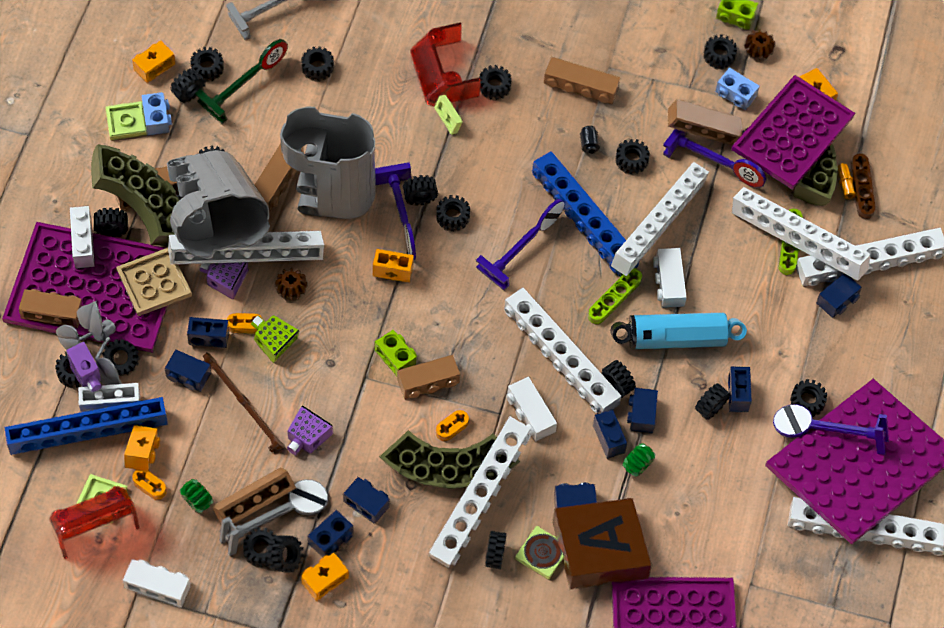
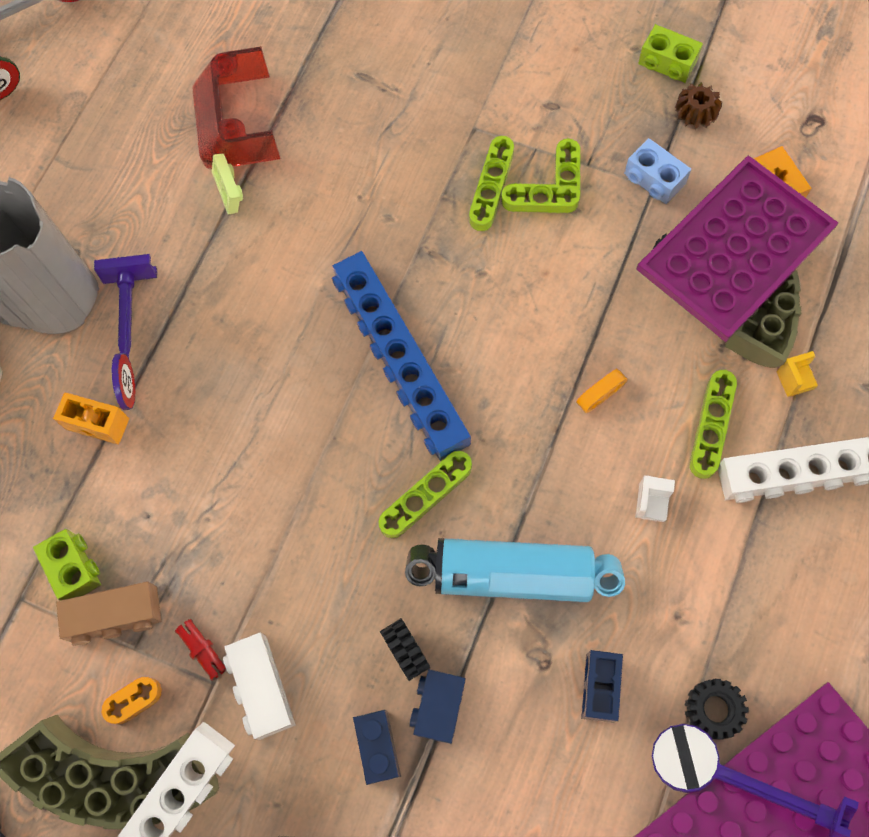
camera: 15 degrees right, 10 degrees up
(314, 55) = (57, 84): black tyre -> none
(420, 190) = (157, 299): black tyre -> none
(453, 222) = (196, 324): black tyre -> none
(490, 393) = (201, 649): none -> red pin
(494, 271) = (335, 361): dark purple piece -> none
(495, 73) = (299, 127): black tyre -> none
(560, 341) = (277, 493): white brick -> none
(581, 80) = (428, 144): medium nougat brick -> none
(589, 140) = (425, 236): black brick -> none
(627, 103) = (493, 183): none -> lime beam
(632, 165) = (489, 252): black tyre -> none
(639, 459) = (416, 806): green gear -> none
(648, 106) = (560, 188): none -> lime beam
(659, 219) = (507, 377): white brick -> none
(670, 277) = (515, 472): white brick -> none
(704, 122) = (600, 221): medium nougat brick -> none
(712, 401) = (554, 706): black tyre -> none
(718, 226) = (601, 390): none -> light orange beam
(720, 43) = (638, 100): black tyre -> none
(744, 169) = (652, 302): dark purple piece -> none
(758, 286) = (654, 498): none -> white panel
(801, 233) = (736, 421): white brick -> none
(839, 208) = (797, 375): none -> yellow panel
(839, 295) = (784, 525): dark blue brick -> none
(846, 181) = (811, 328): light orange axle -> none
(863, 186) = (840, 339): reddish brown beam -> none

